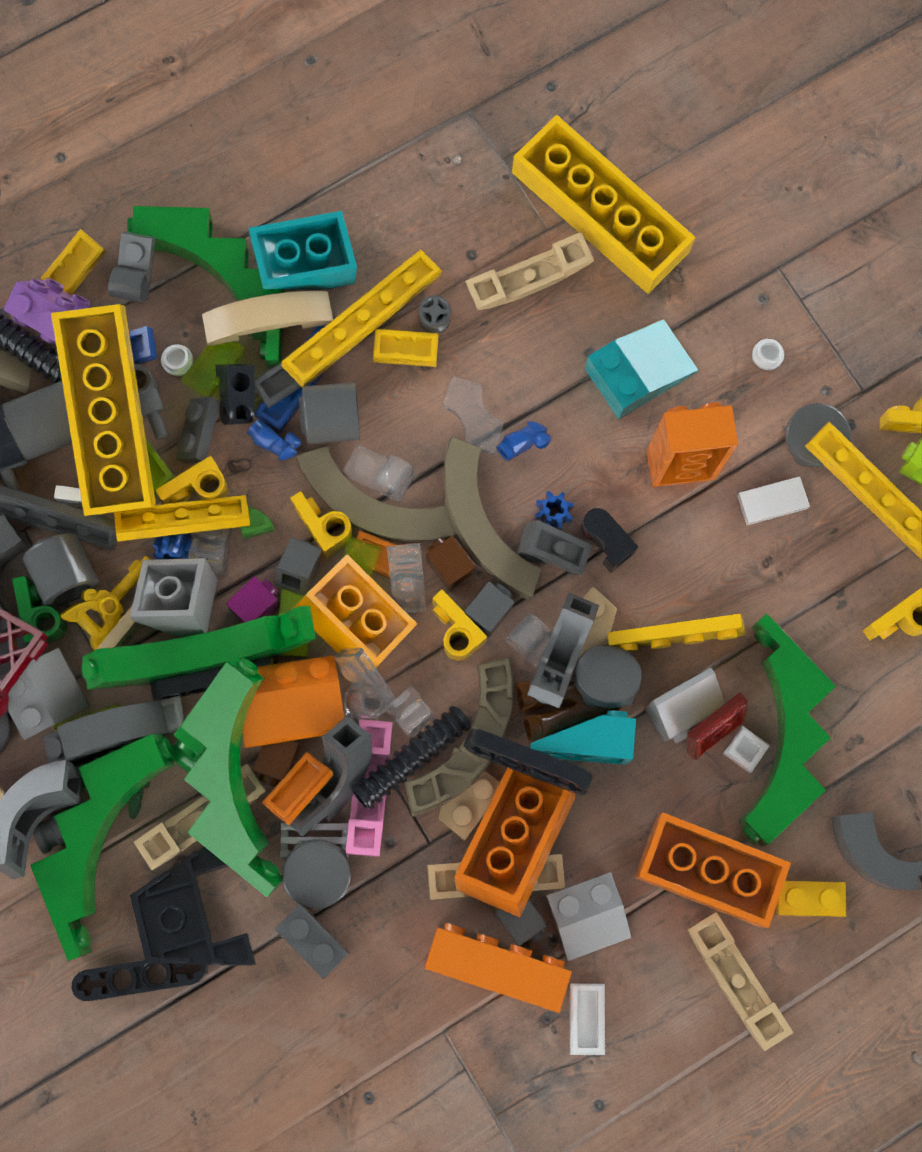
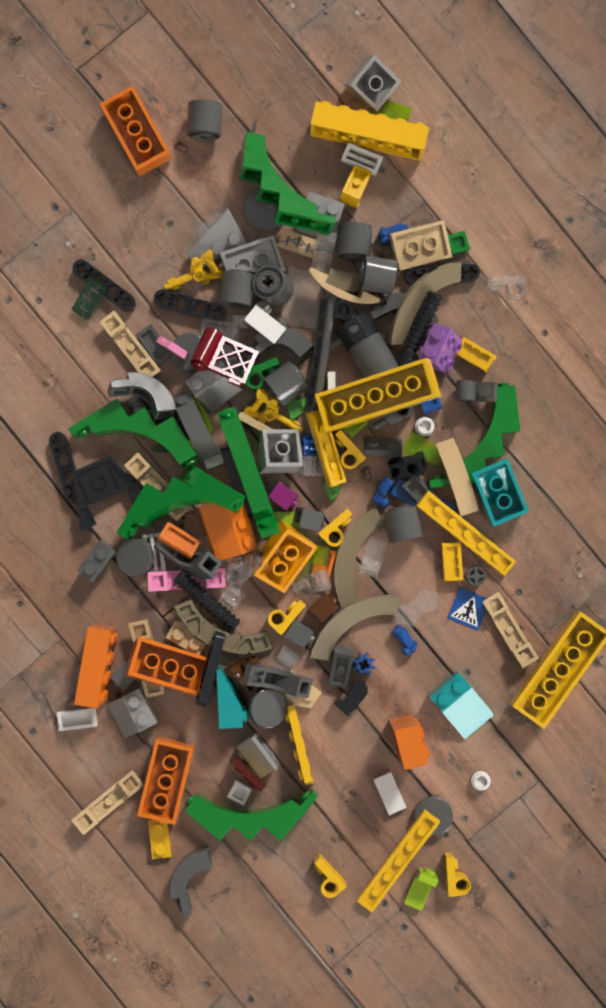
camera: 85 degrees right, 10 degrees up
(108, 564) = (296, 408): none -> bright green tile
(487, 336) = (468, 609): none -> blue sticker

